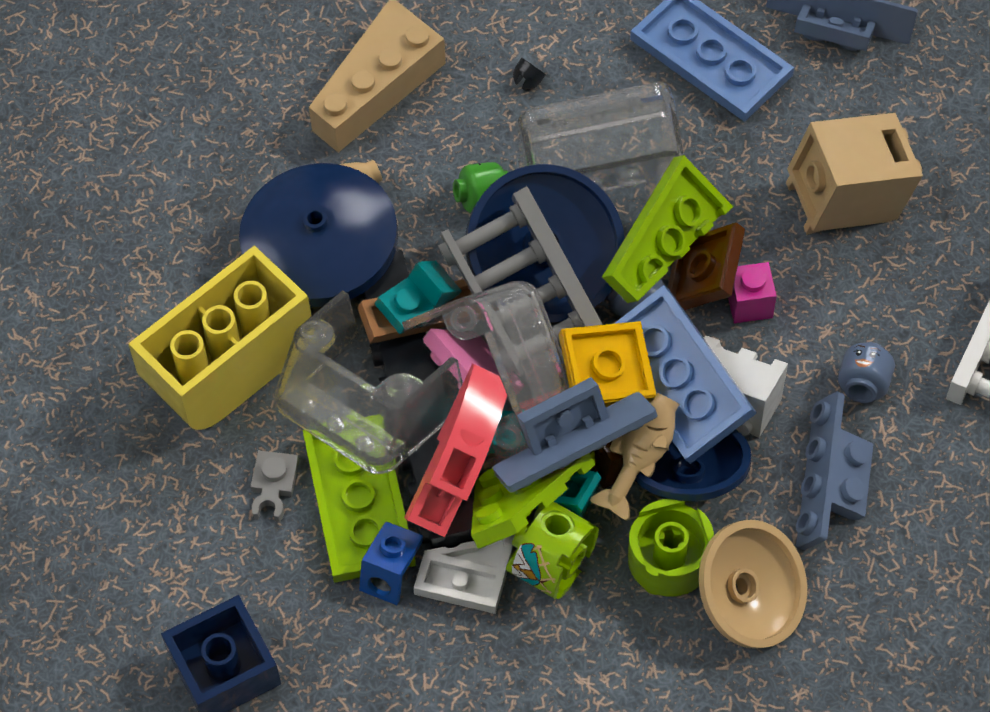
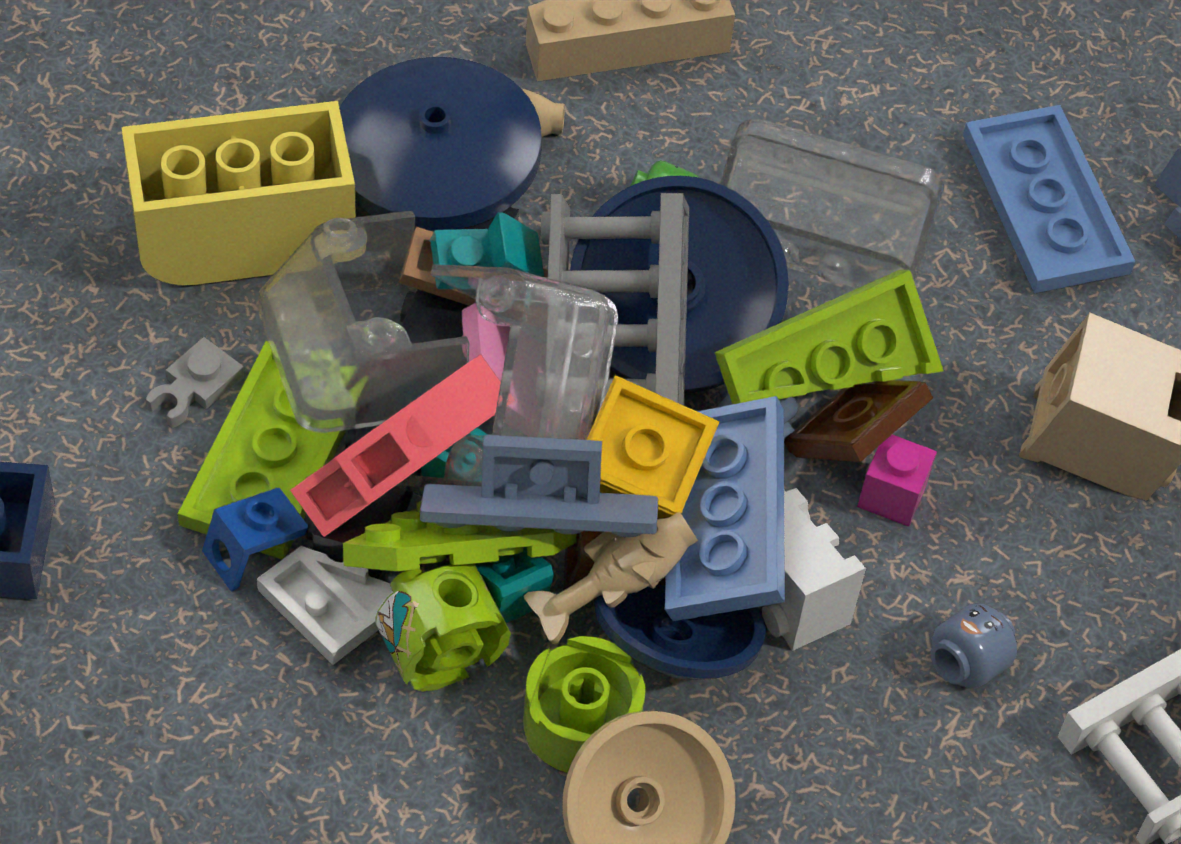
camera: 25 degrees right, 5 degrees down
(526, 70) = (812, 109): black hinge -> none
(834, 473) = (853, 742): sand blue bracket -> none

